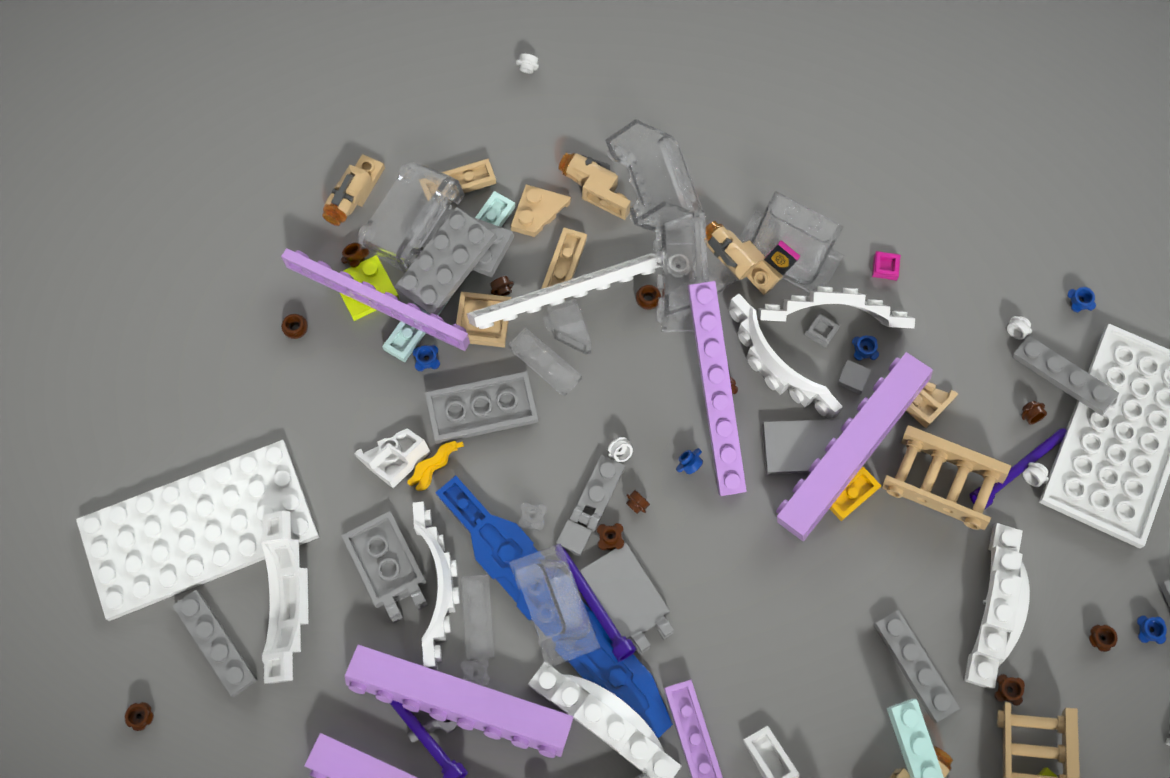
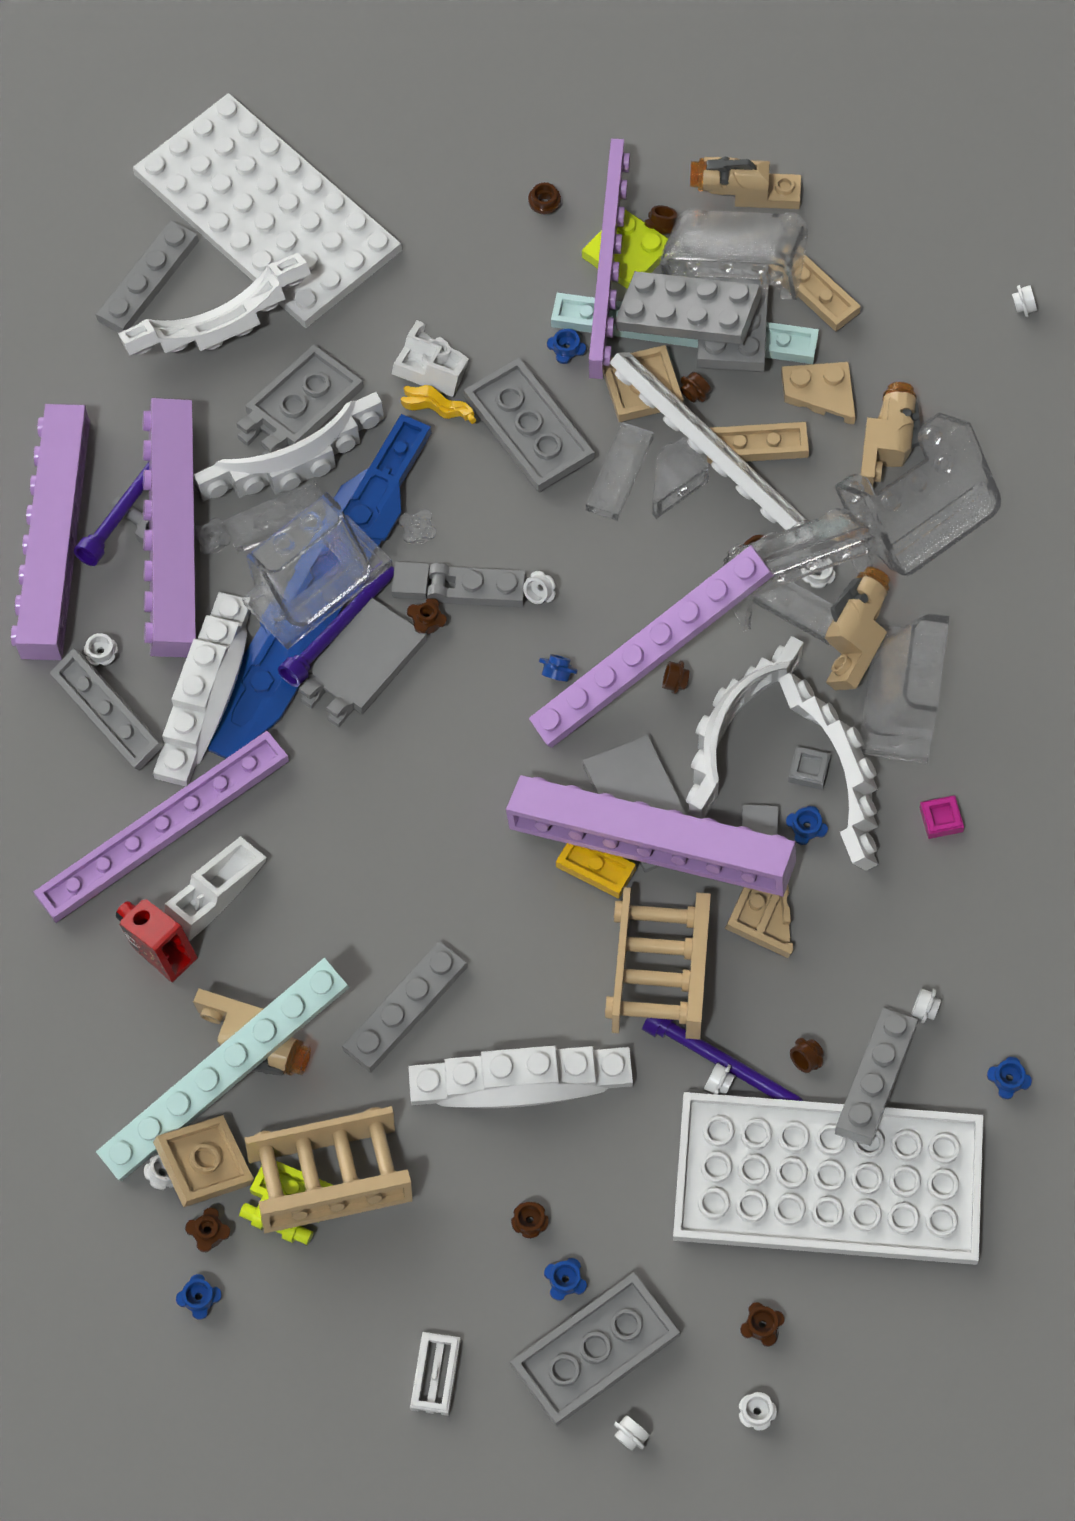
camera: 75 degrees right, 5 degrees down
(131, 716) = (44, 234): reddish brown plate -> none
(637, 502) = (482, 630): reddish brown plate -> none
(782, 257) = (875, 672): tile -> none
(1017, 686) = (409, 1115): reddish brown plate -> none

